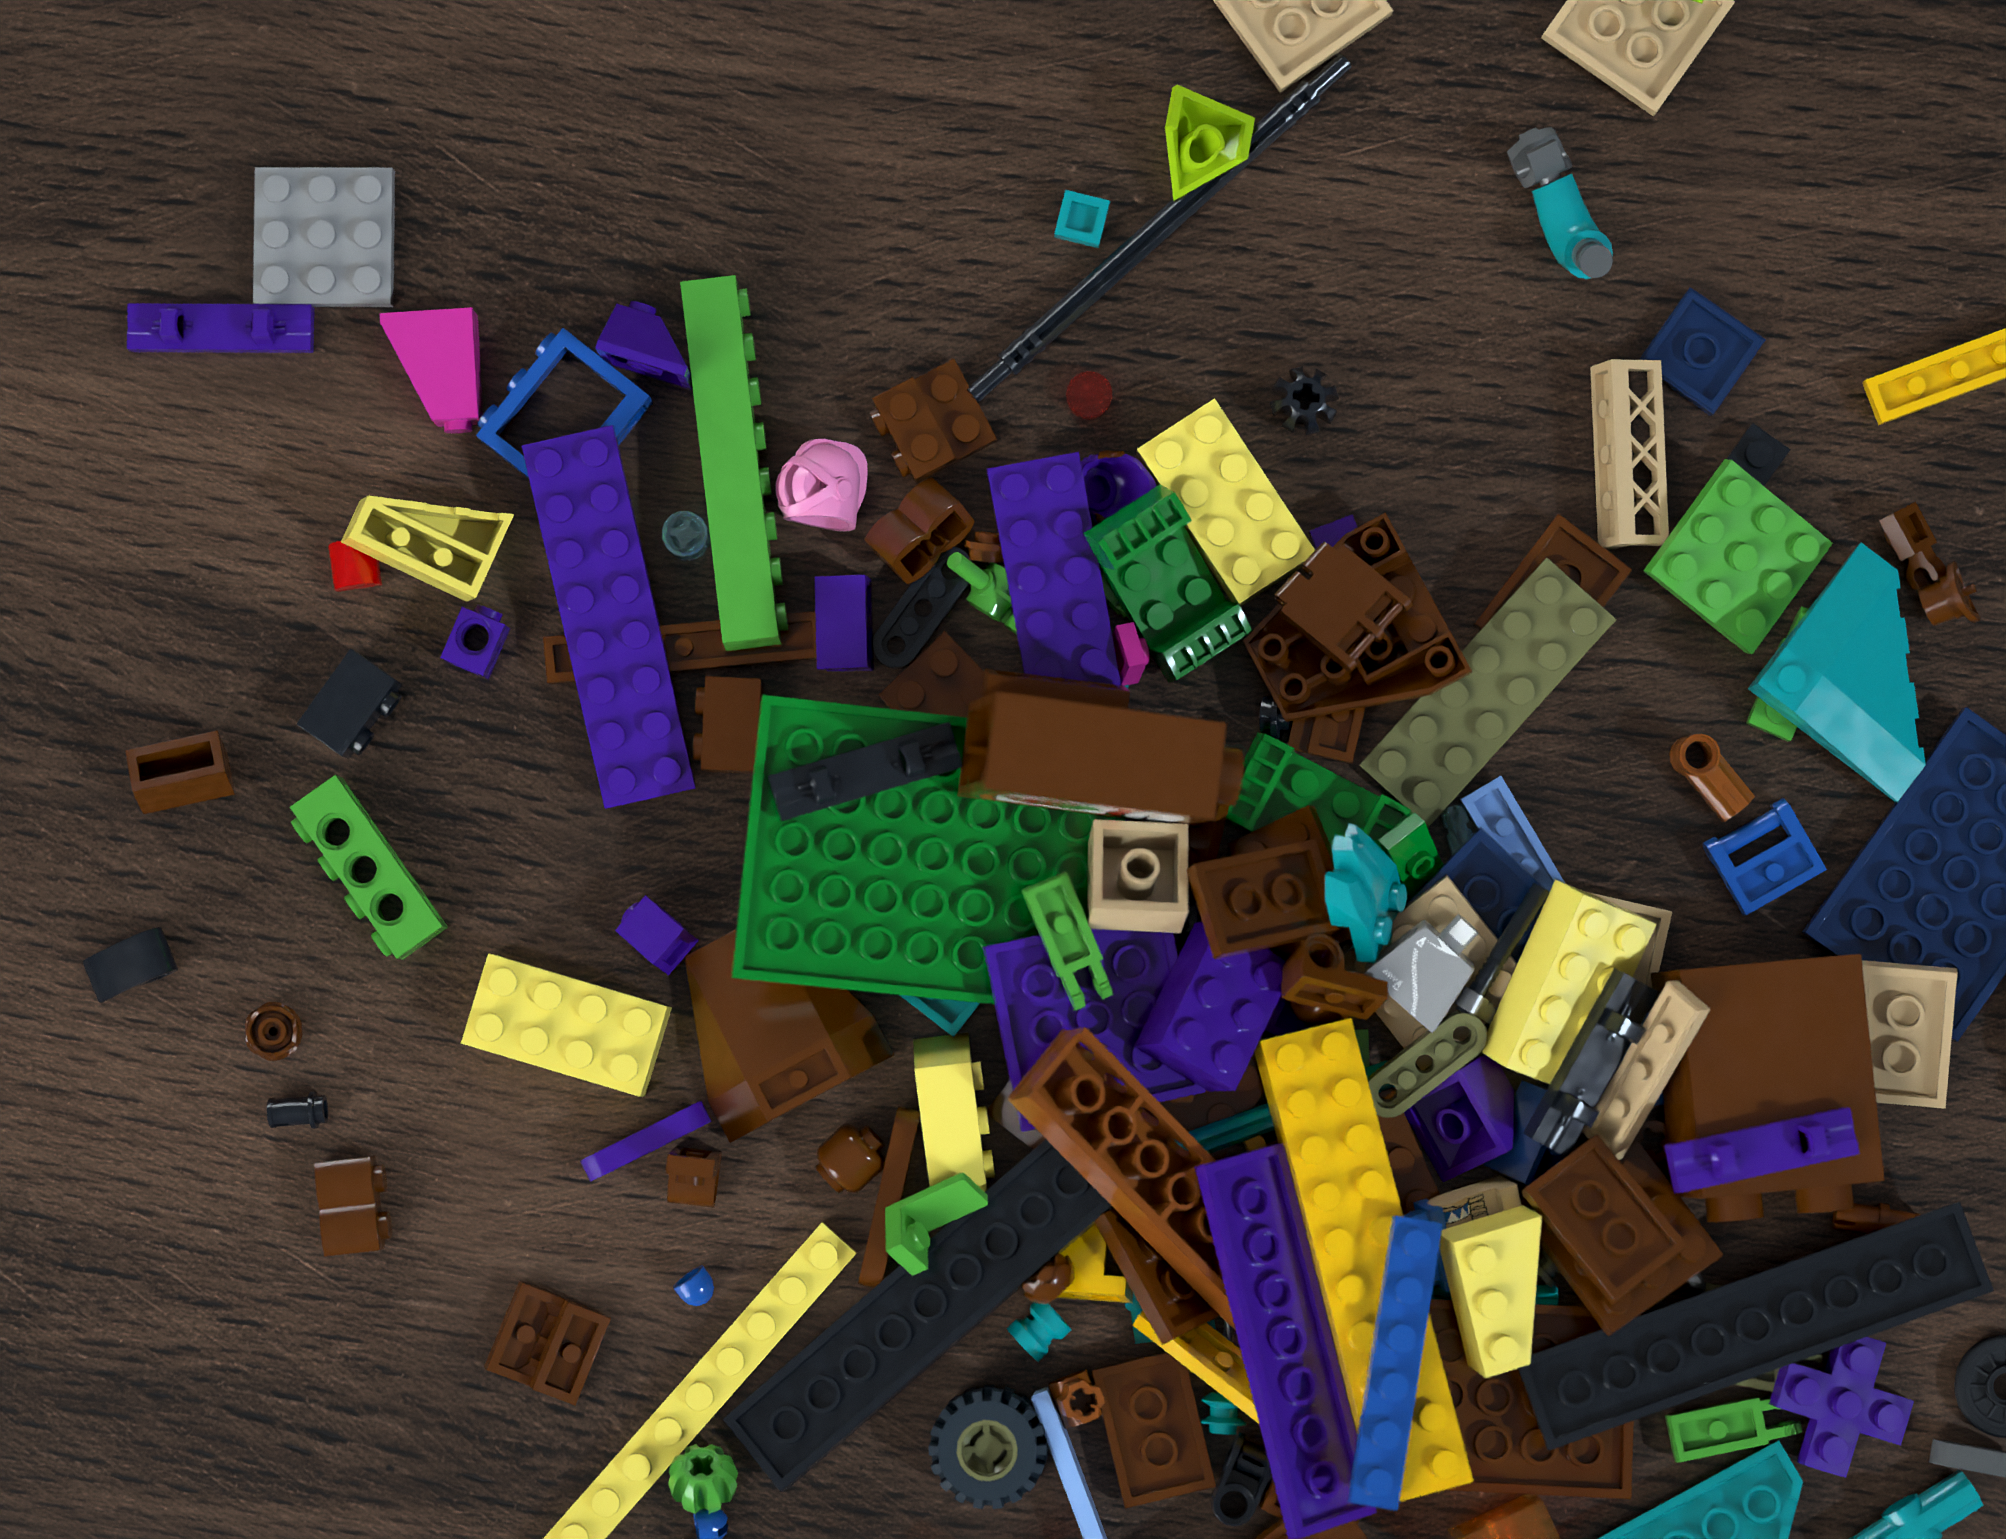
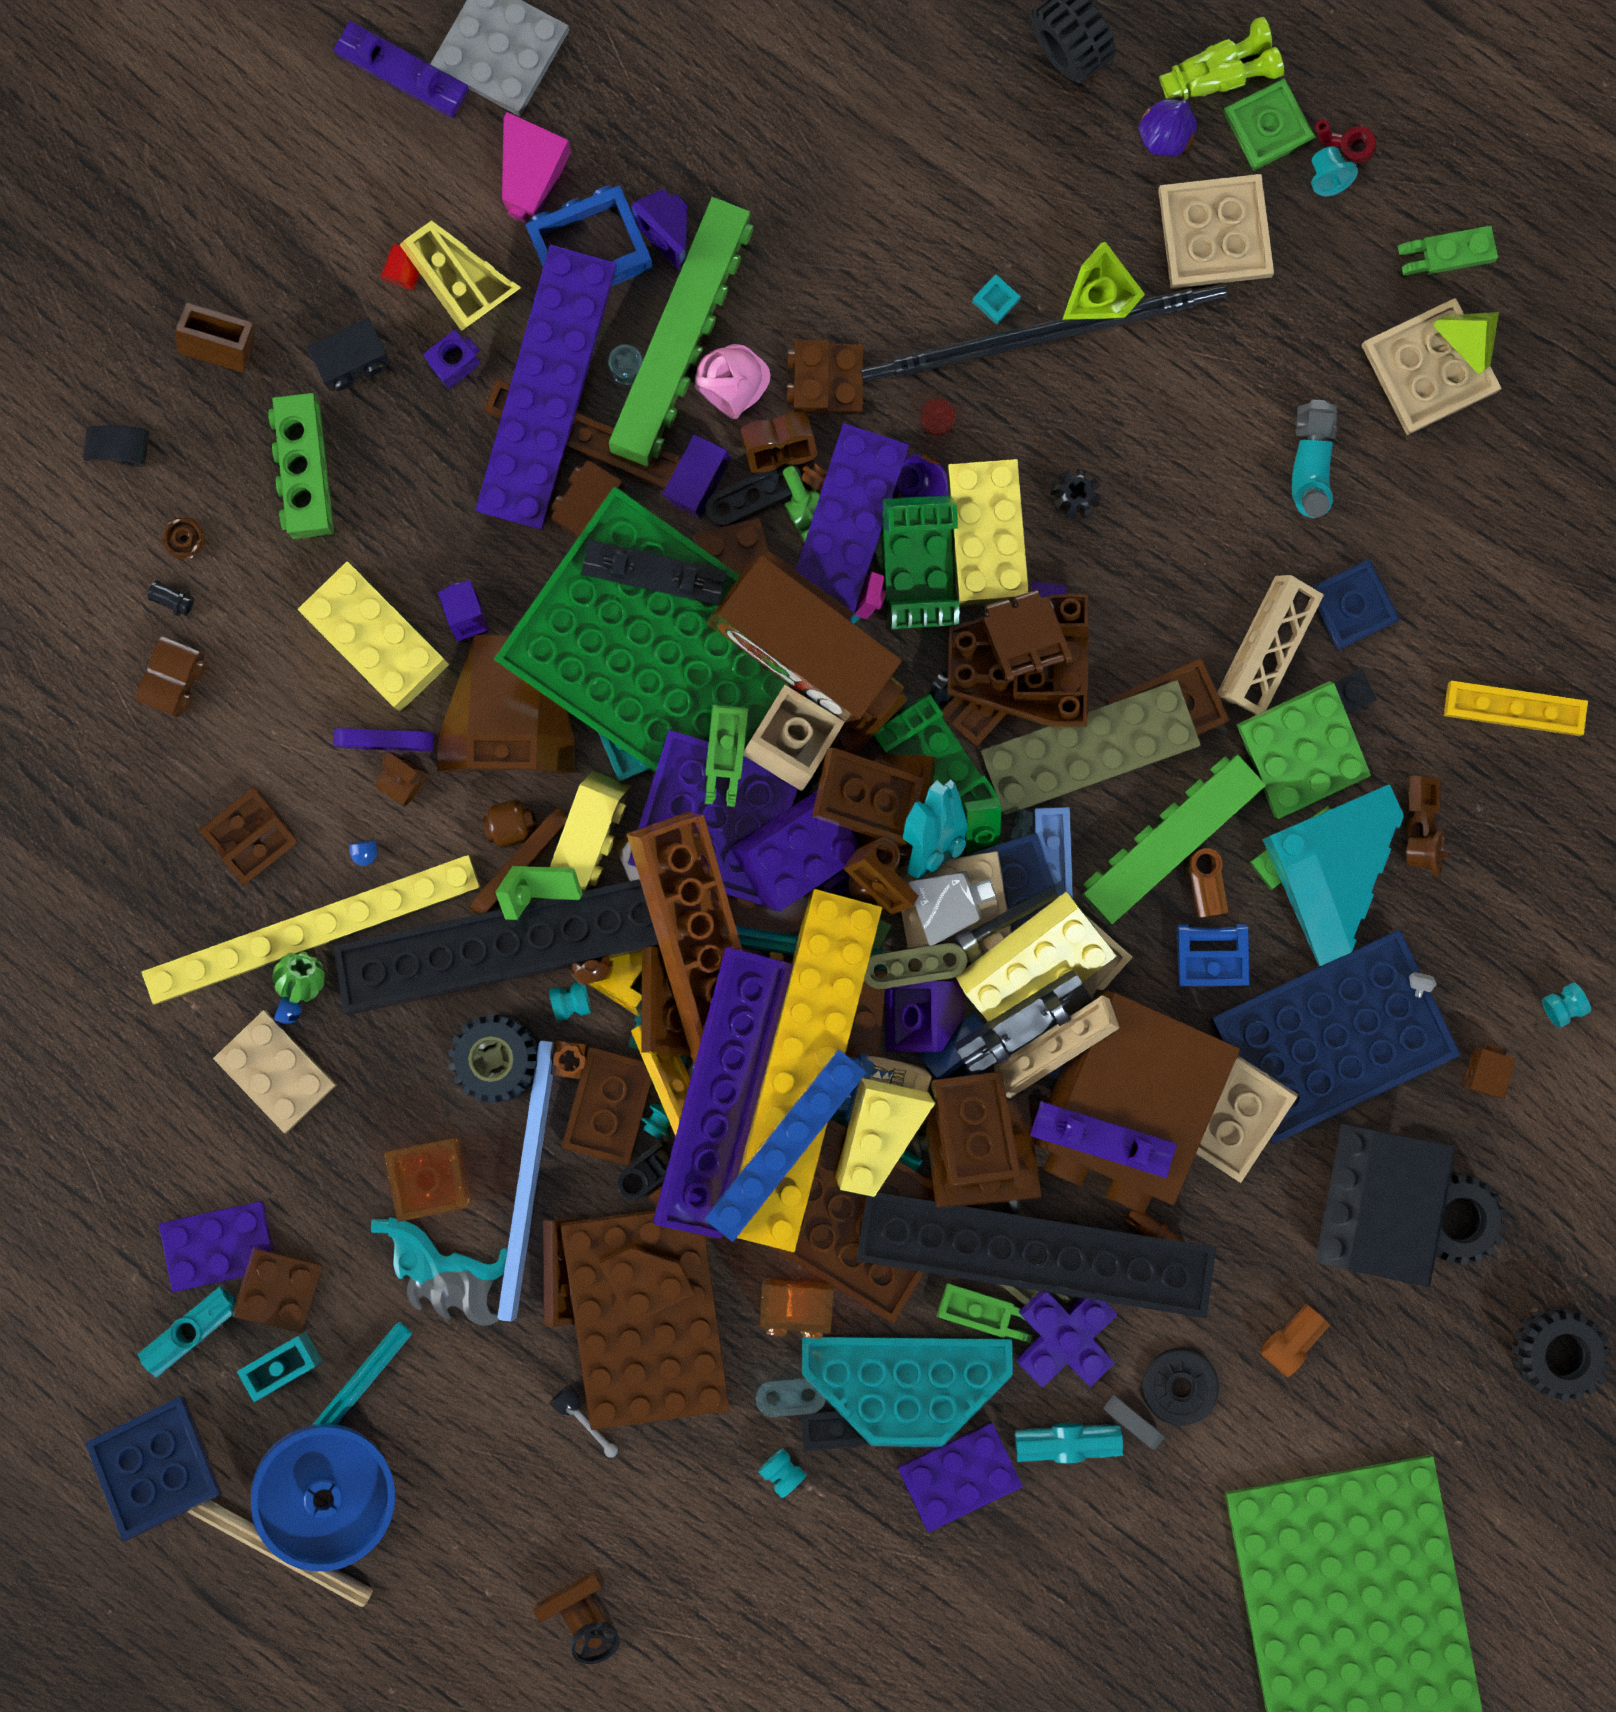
camera: 25 degrees right, 0 degrees up
(1642, 746) = (1172, 840): none -> bright green brick

